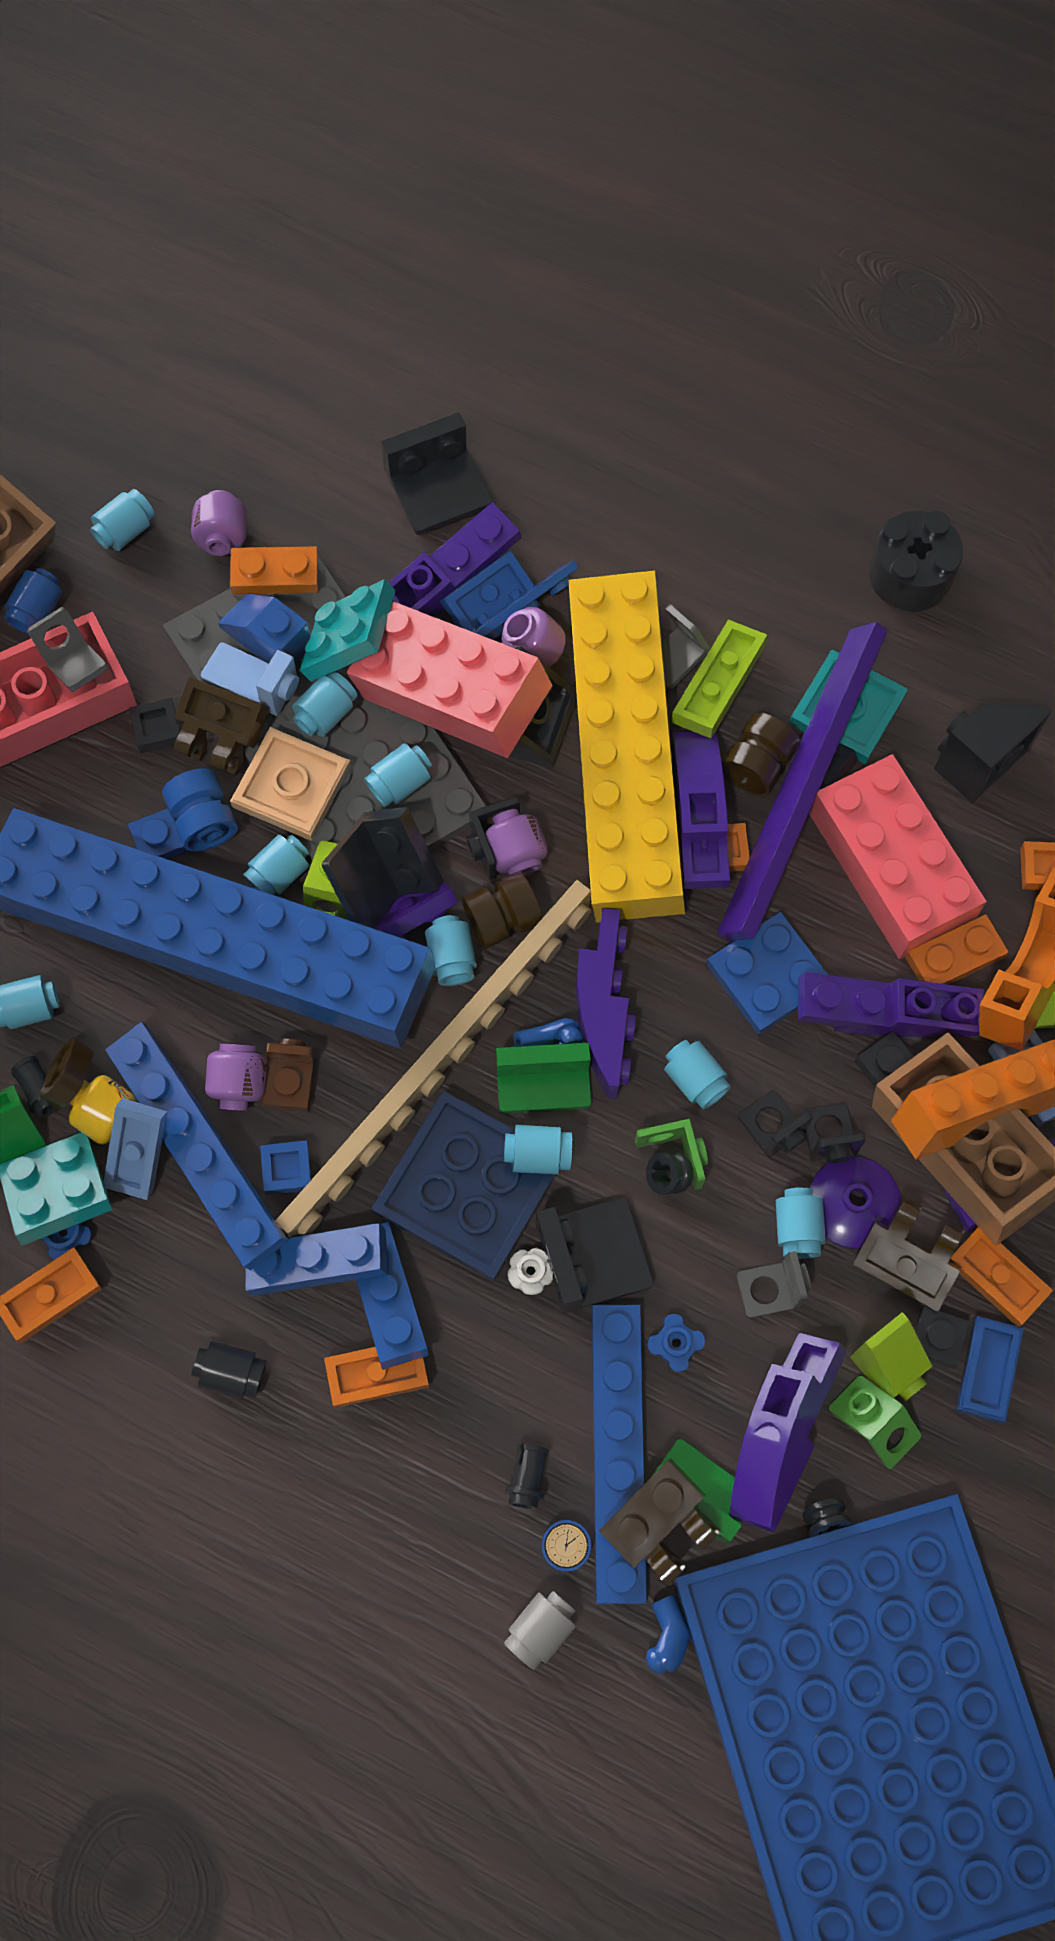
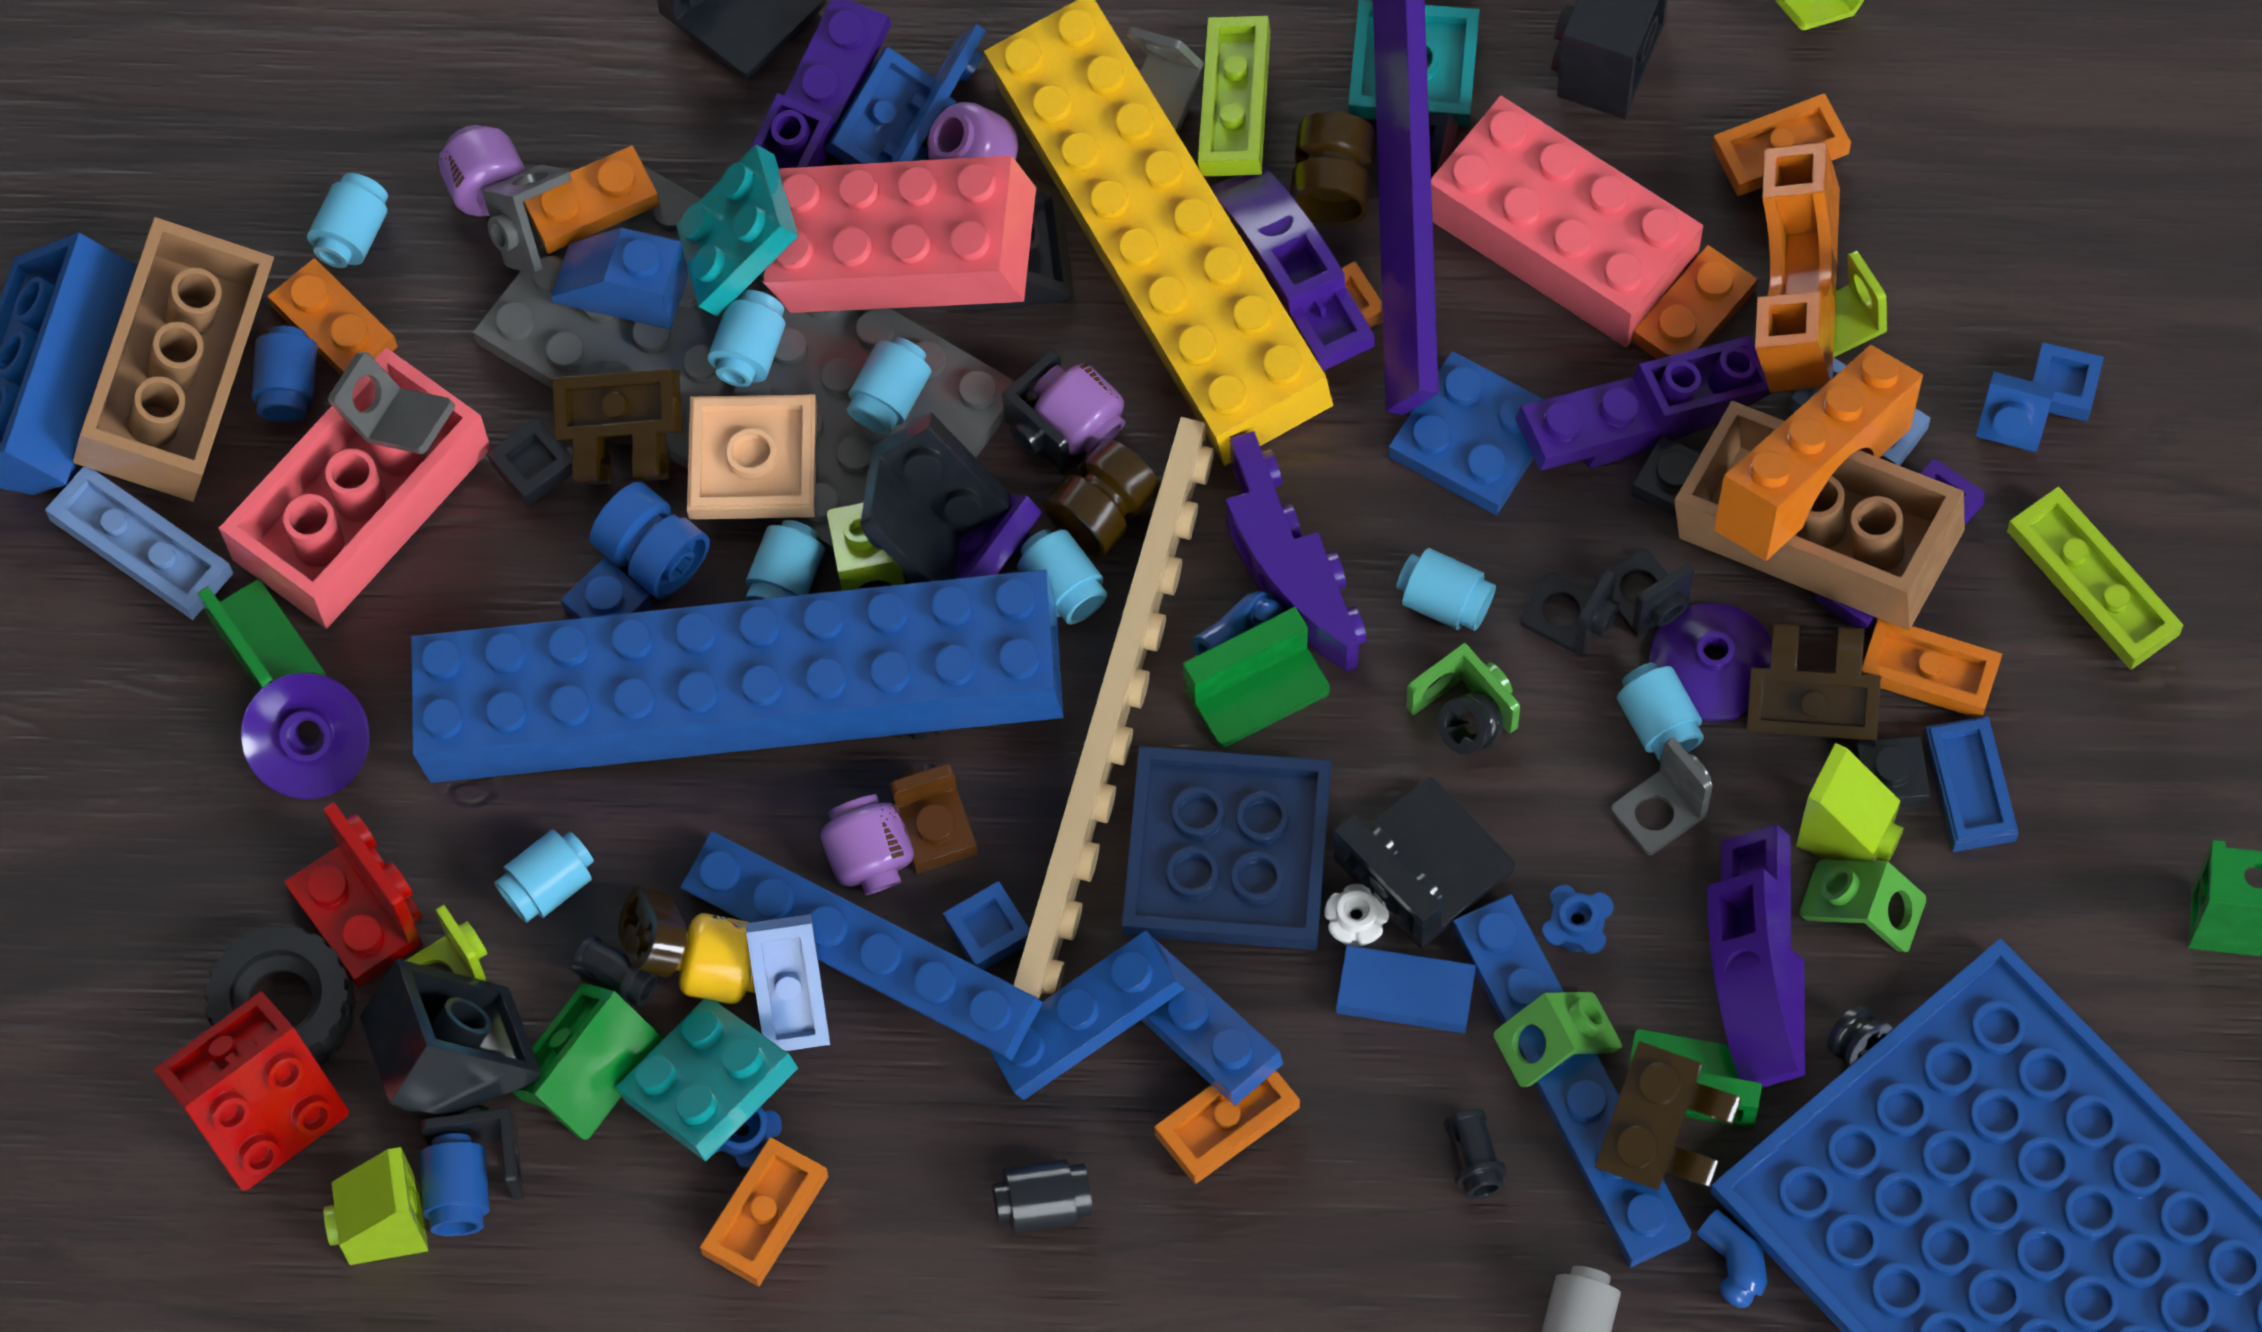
camera: 20 degrees left, 5 degrees down
(82, 578) = (330, 316): none -> orange plate
(212, 563) = (508, 219): none -> dark grey bracket
(251, 677) = (636, 344): light blue bracket -> none
(538, 1149) = (1298, 759): medium azure brick -> none
(539, 1337) = (1406, 989): none -> blue tile
(566, 1546) = (1561, 1214): tile -> none
(633, 1419) = (1570, 1026): none -> bright green bracket

